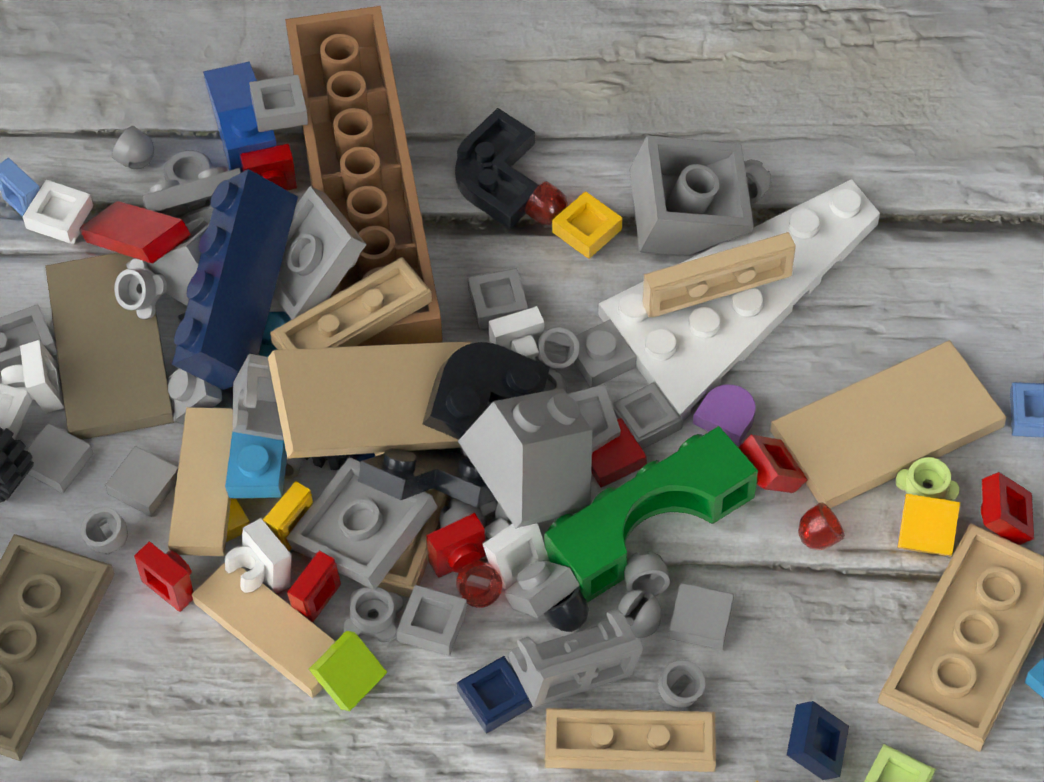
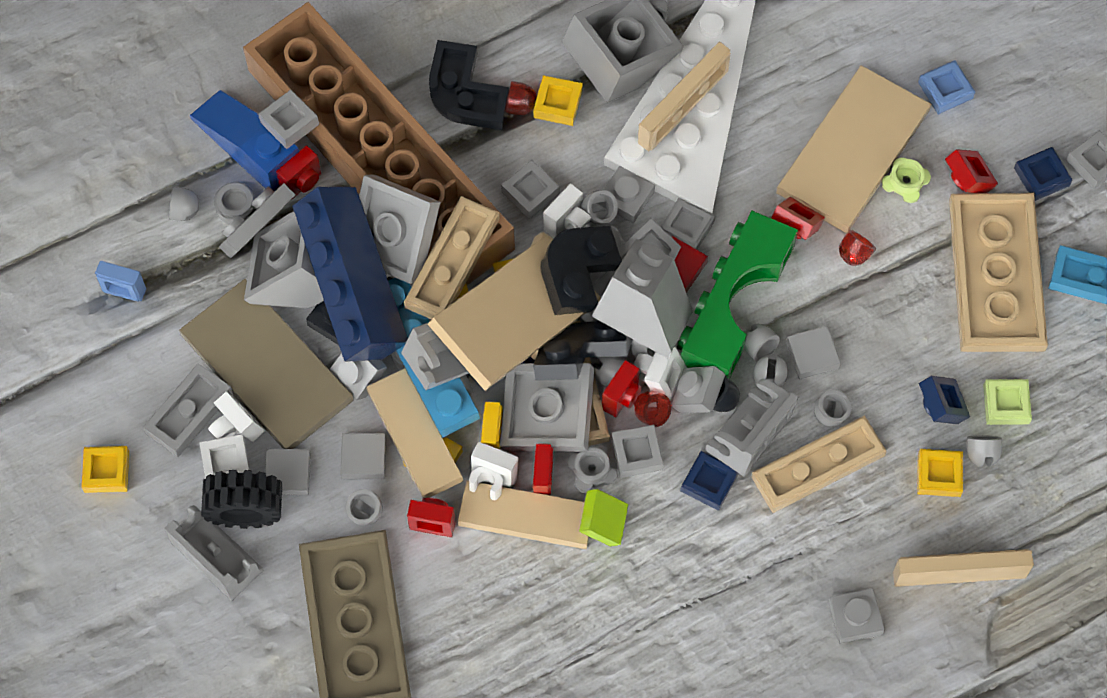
camera: 30 degrees left, 10 degrees up
(58, 211) = (163, 283): white tile -> none
(135, 231) = (238, 271): red tile -> none
(139, 288) = (263, 321): light grey plate -> none
(730, 409) = (741, 194): medium lavender tile -> none
(928, 525) = (925, 209): yellow tile -> none

